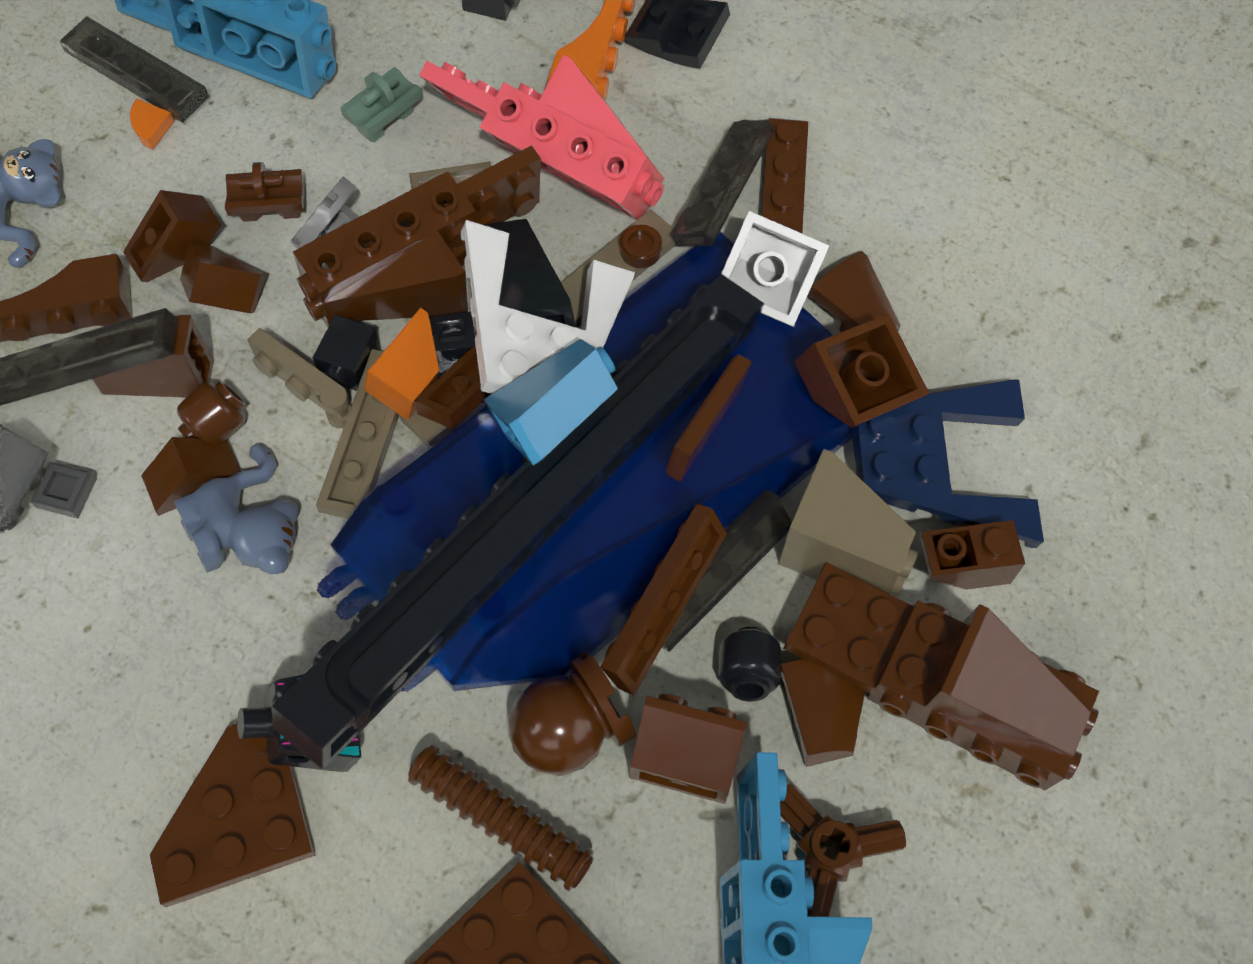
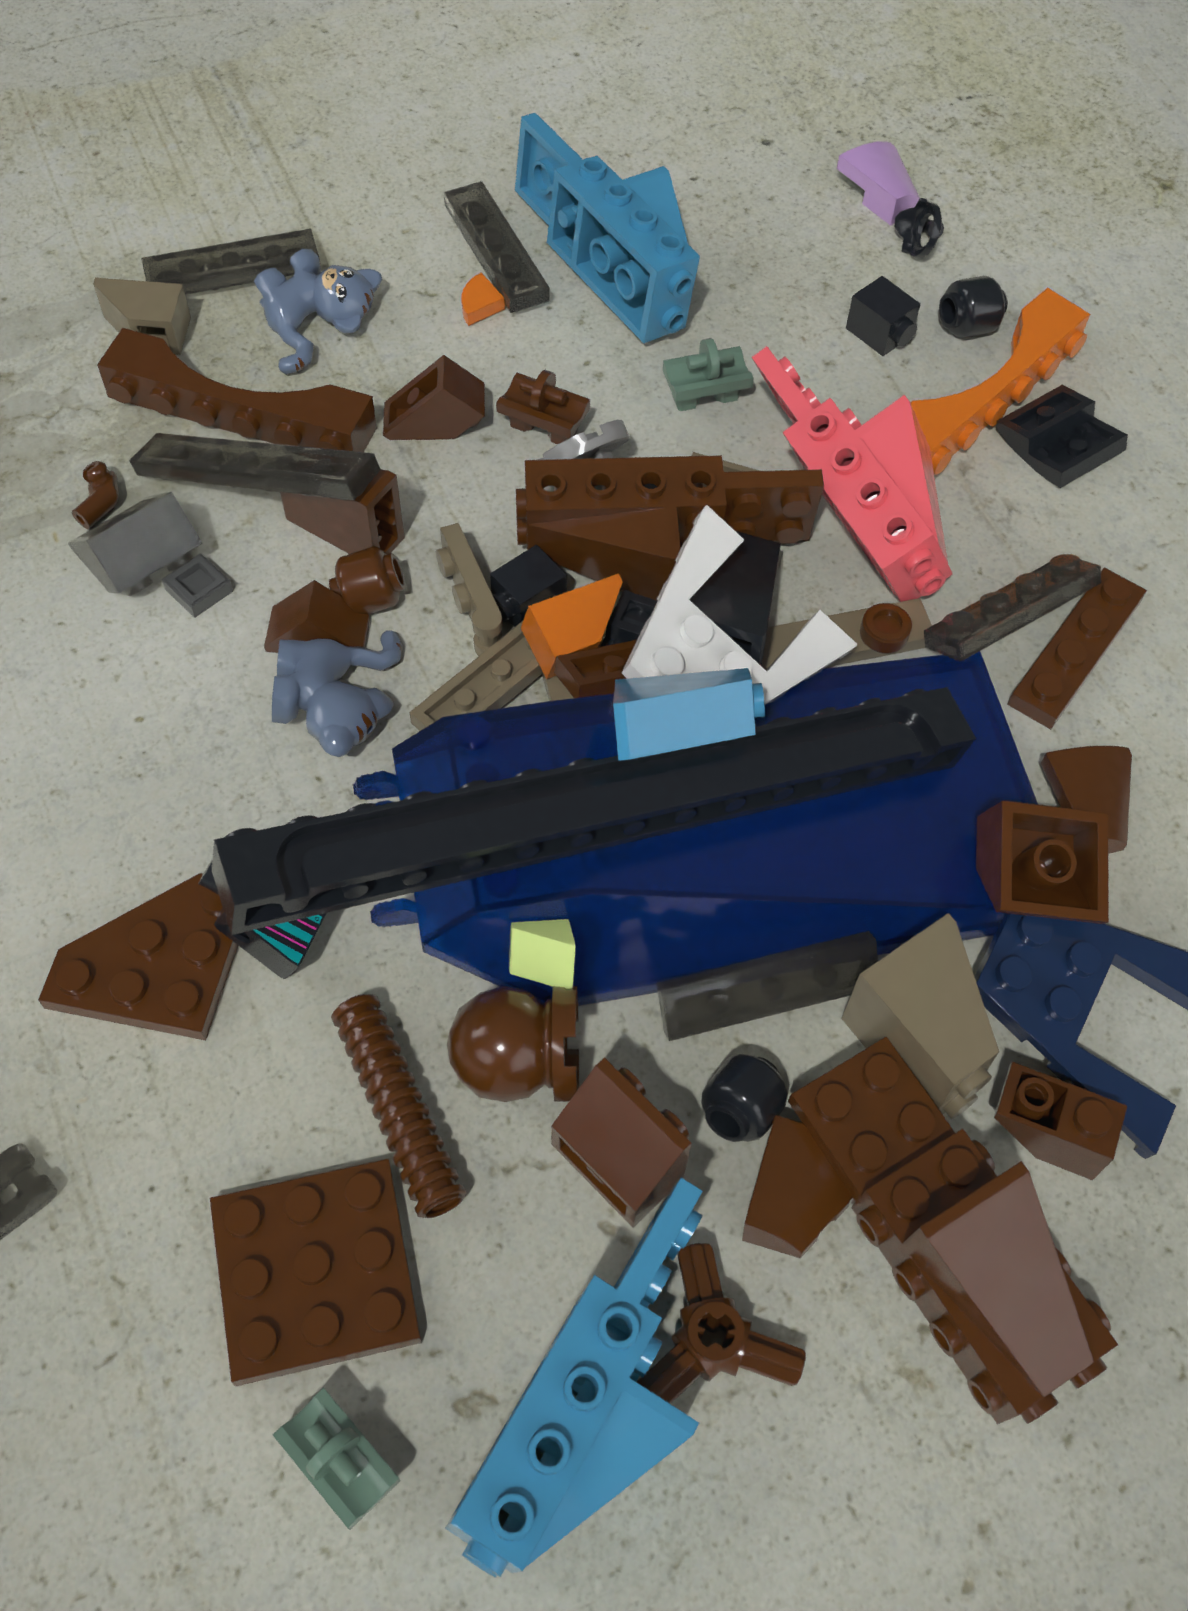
camera: 30 degrees right, 5 degrees down
(219, 279) = (453, 466): reddish brown slope -> none
(551, 640) = (543, 952): none -> yellowish green slope
(664, 599) = (686, 976): reddish brown plate -> none
(707, 417) = (843, 819): reddish brown tile -> none
(775, 265) = (1015, 712): white slope -> none

